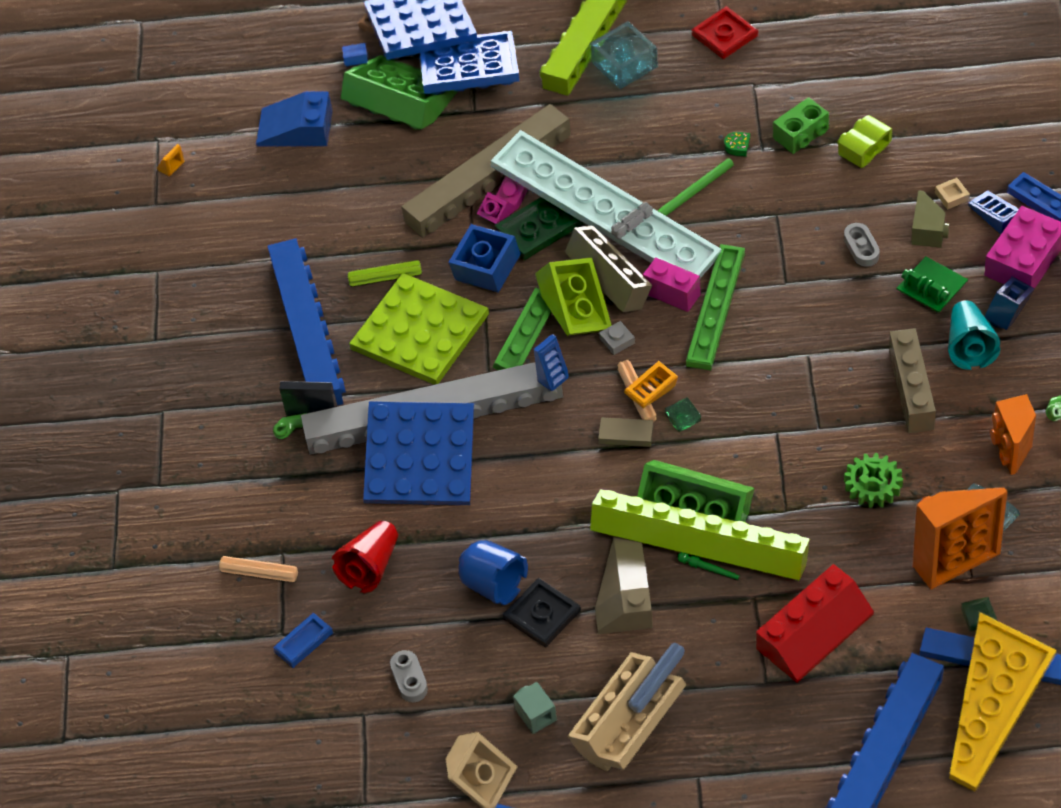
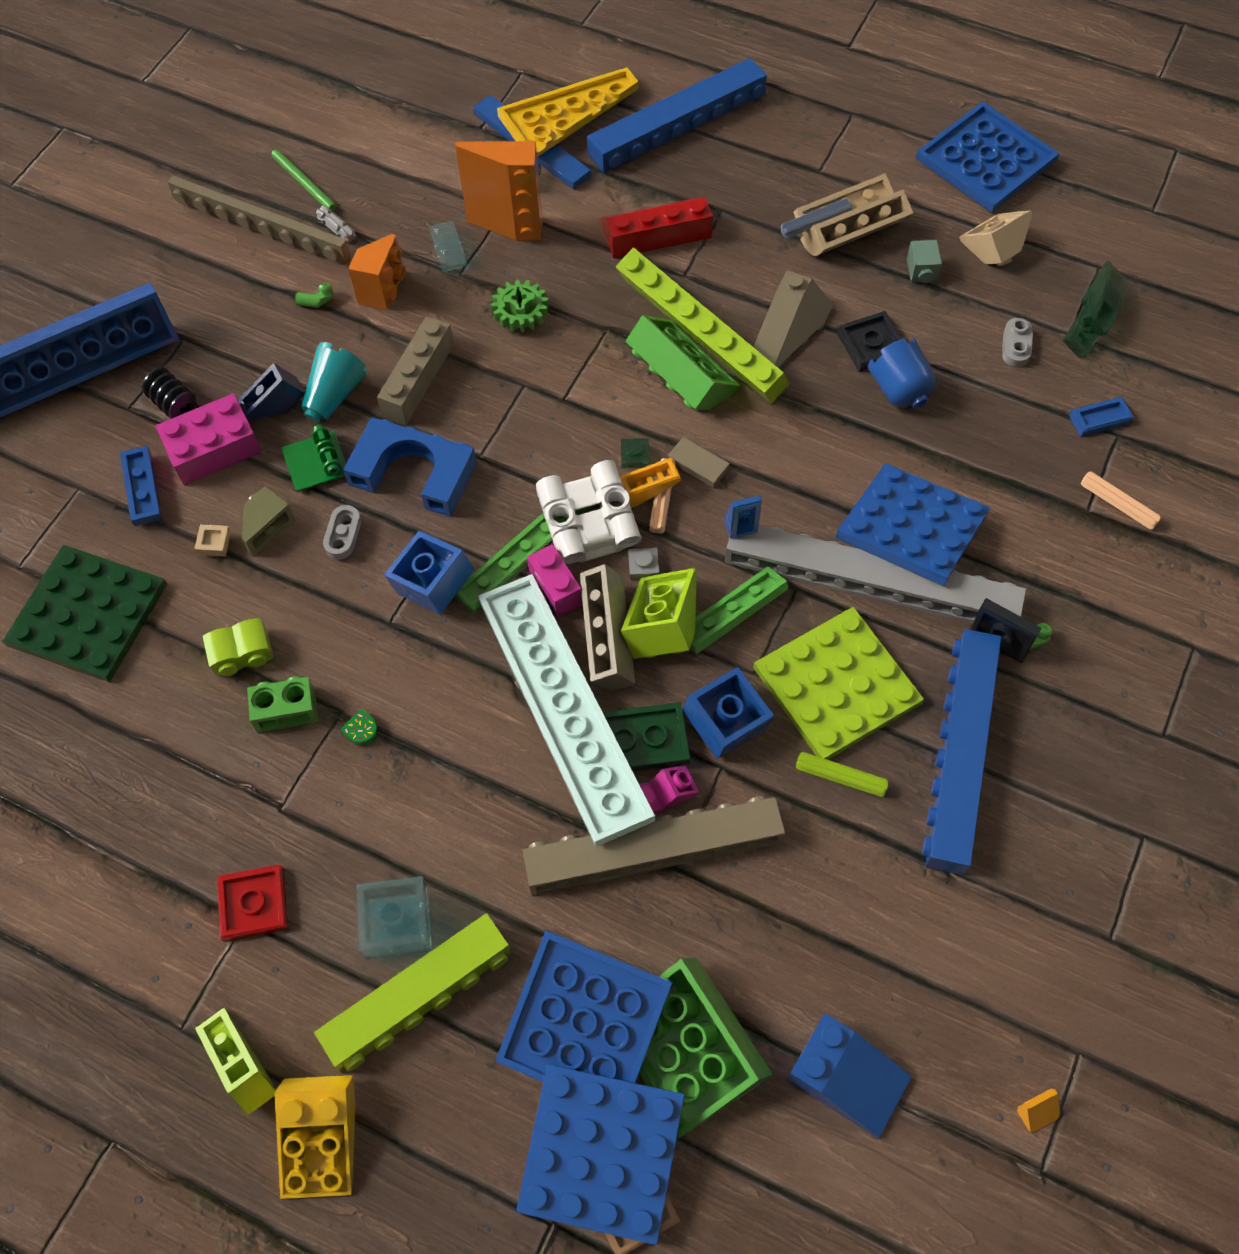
camera: 155 degrees left, 10 degrees up
(342, 735) = (1099, 312): none -> clear green slope
(355, 54) = (717, 1143): blue tile -> none
(366, 557) = (1011, 446): red cone -> none
(631, 220) = (548, 658): light grey axle -> none
(693, 348) = (594, 532): none -> white piece
(696, 187) = (445, 697): bright green bar -> none
(765, 237) = (429, 572): none -> blue brick
(824, 329) = (386, 442): none -> blue arch
(994, 219) = (192, 484): slope -> none
(998, 115) = (85, 613): none -> dark green plate

